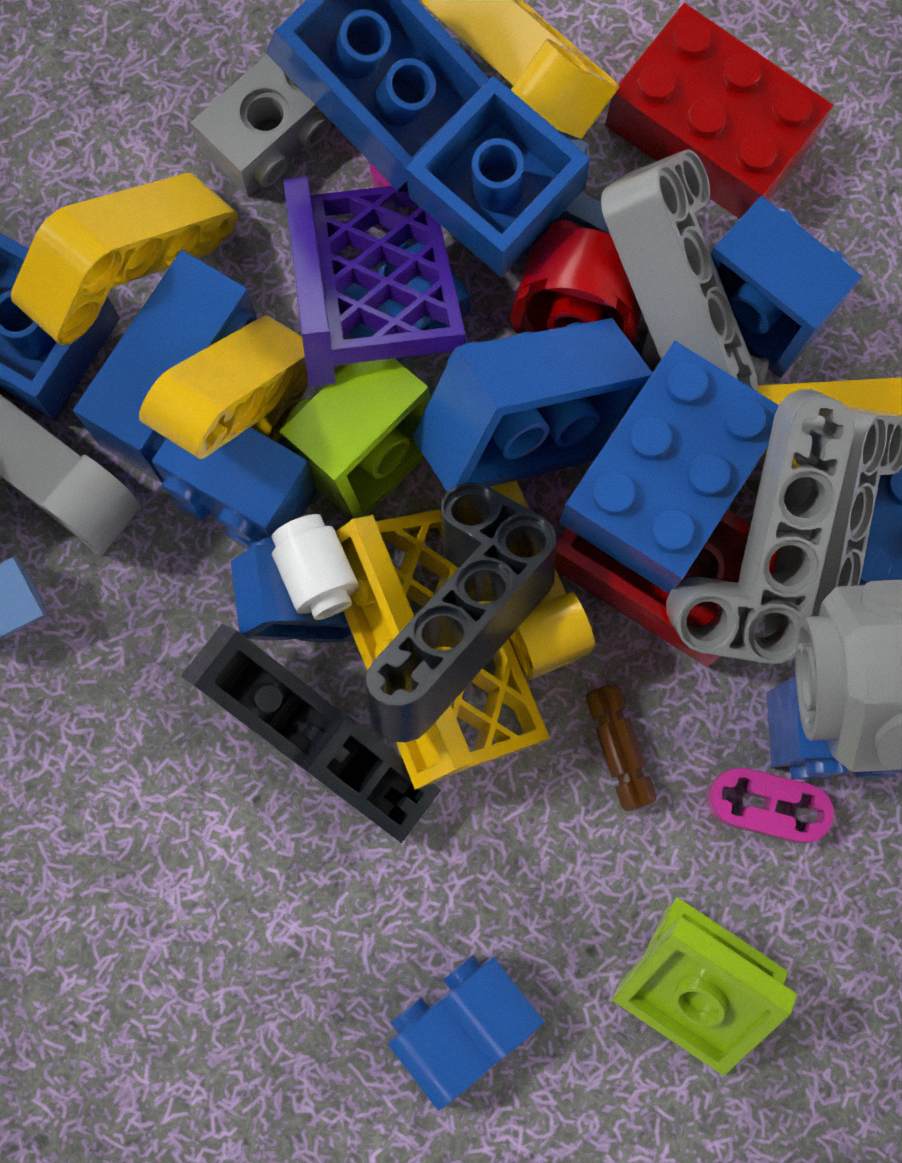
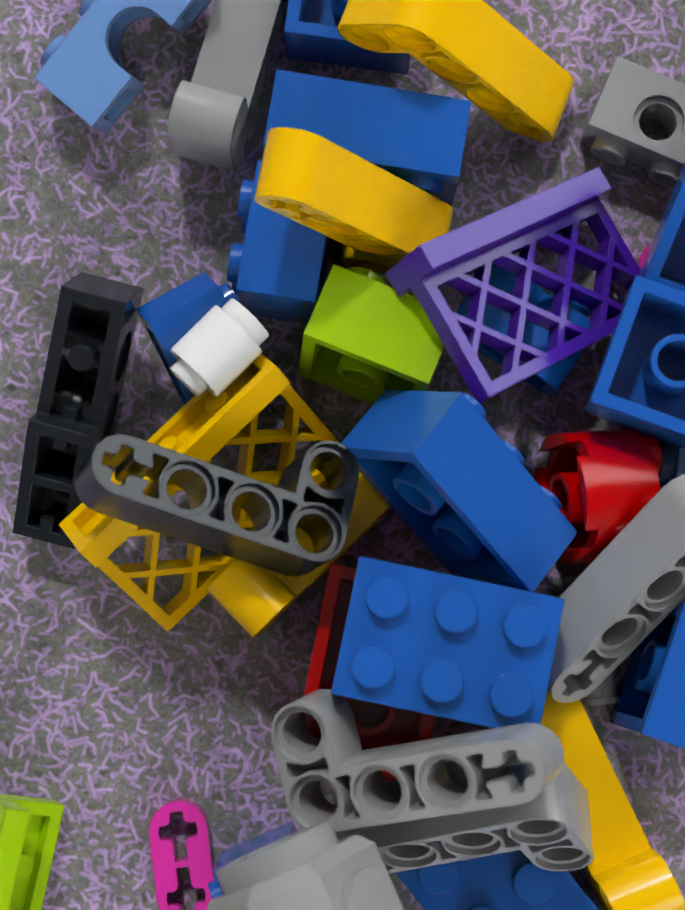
camera: 70 degrees right, 5 degrees up
(621, 747) = (183, 701): reddish brown axle -> none

